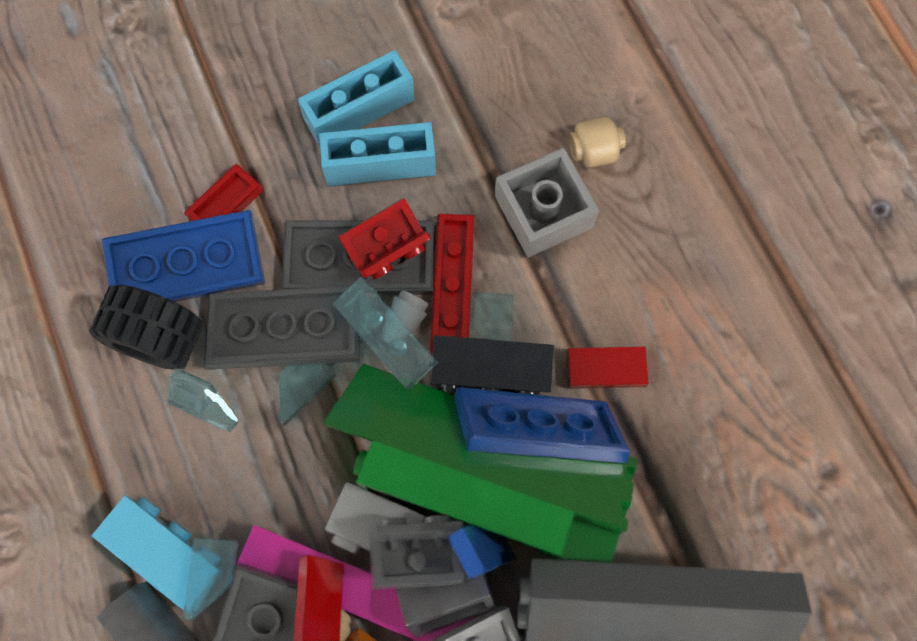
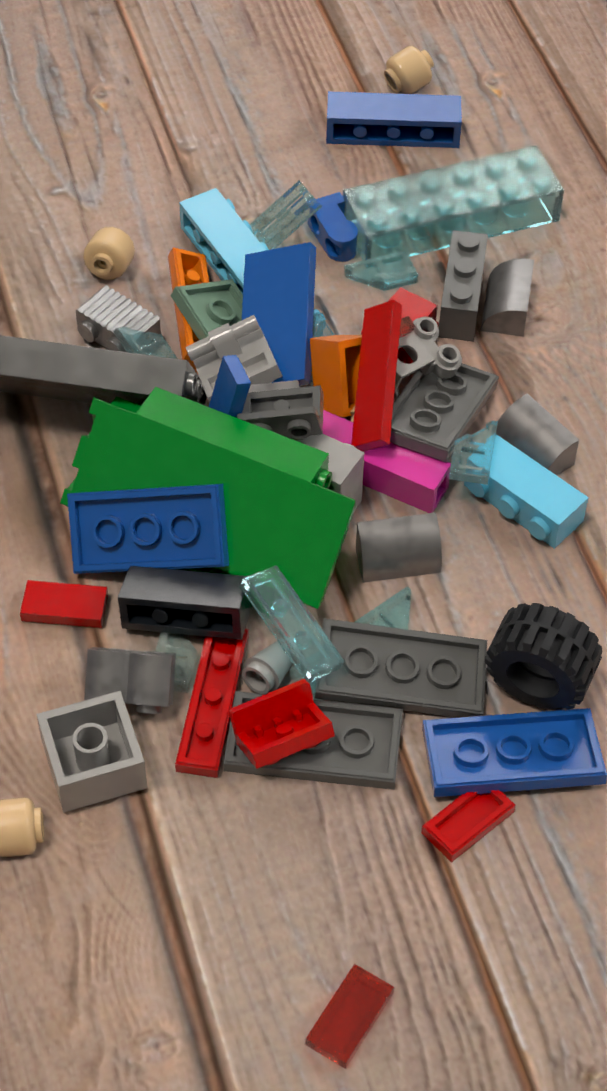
camera: 175 degrees left, 20 degrees down
(199, 399) = (480, 605): clear light blue tile -> none
(290, 463) = (398, 547): none -> flat silver brick
(312, 37) = (349, 1016): none -> clear red tile
(358, 96) = (296, 897): medium azure brick -> none
(378, 154) = (277, 827): medium azure brick -> none
(524, 280) = (141, 676): none -> flat silver brick

